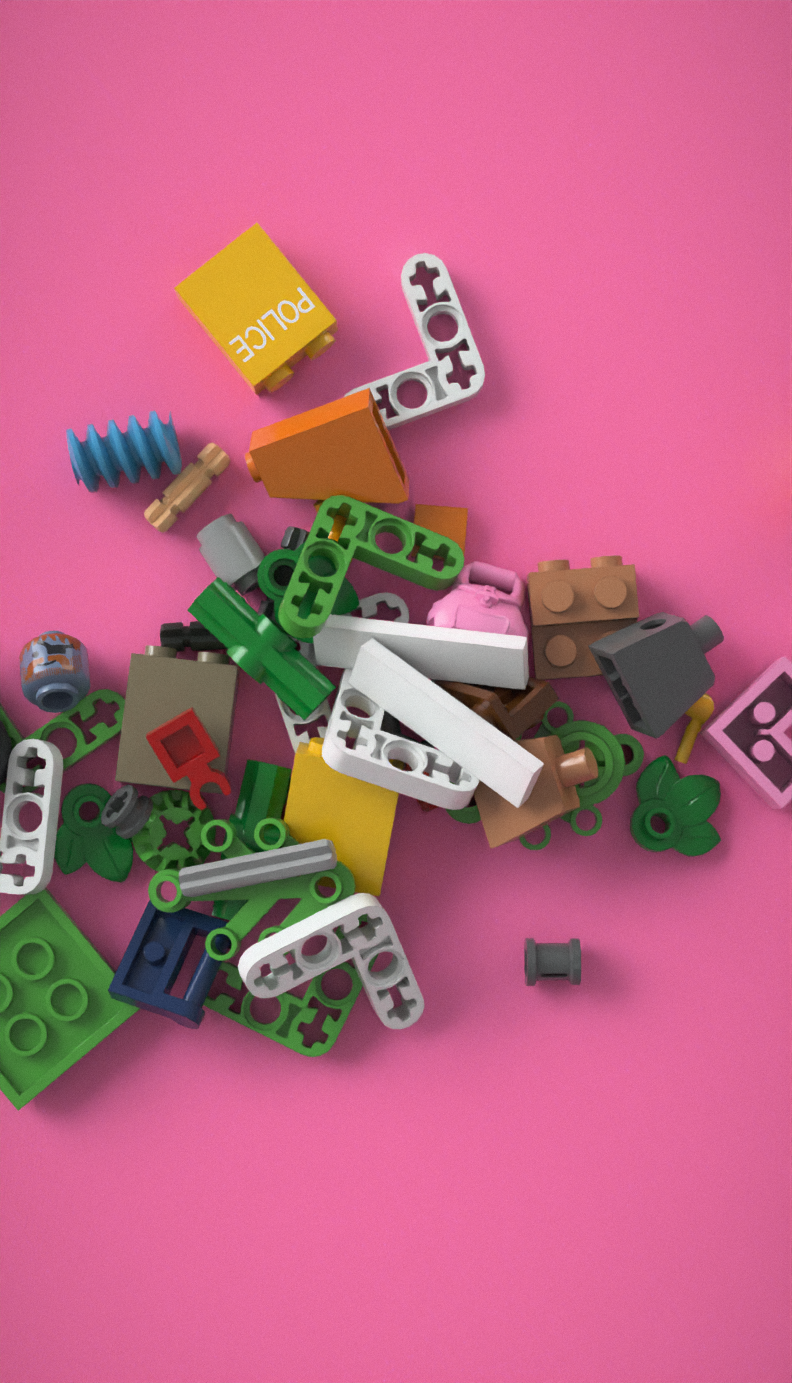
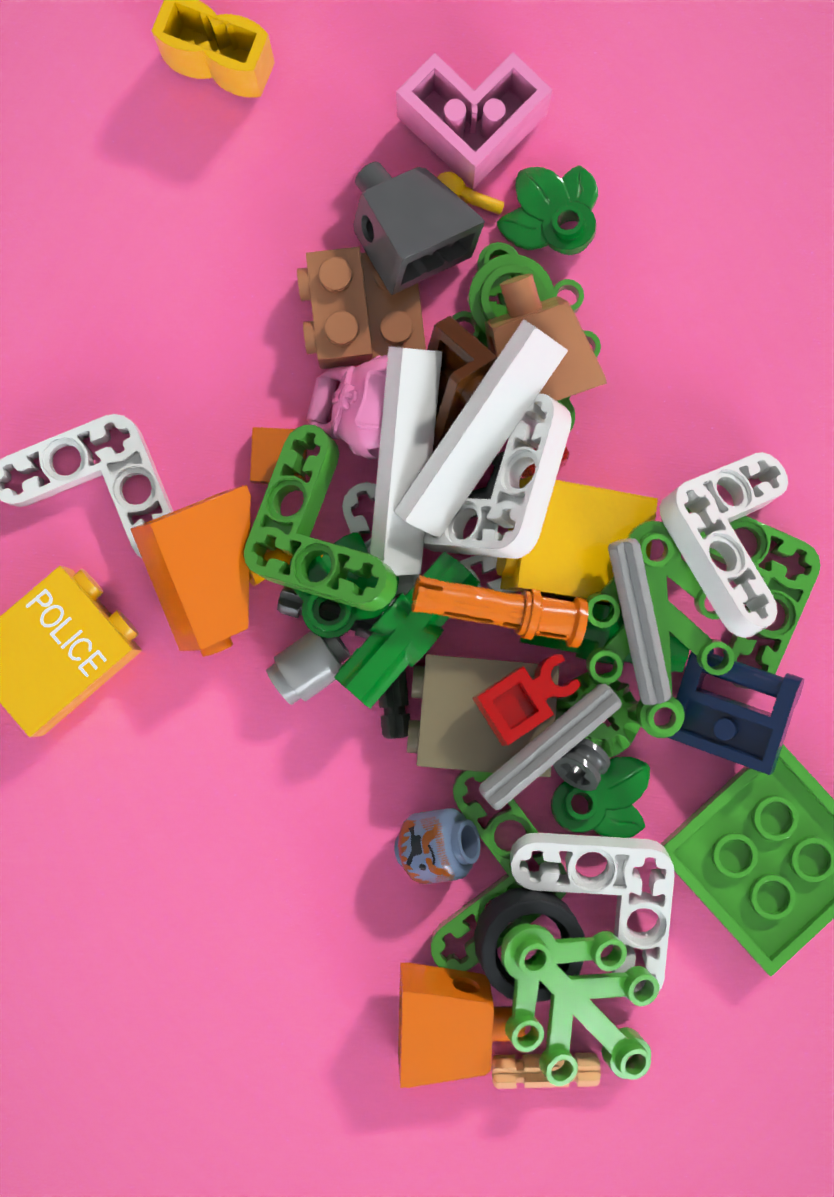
camera: 90 degrees left, 0 degrees up
(124, 451) = (204, 783): dark azure piece -> none
(144, 779) = (550, 746): none -> light grey axle
(187, 487) = (240, 716): light nougat axle -> none
(271, 760) = (526, 613): none -> orange pin
(552, 961) = (711, 325): dark grey bush -> none

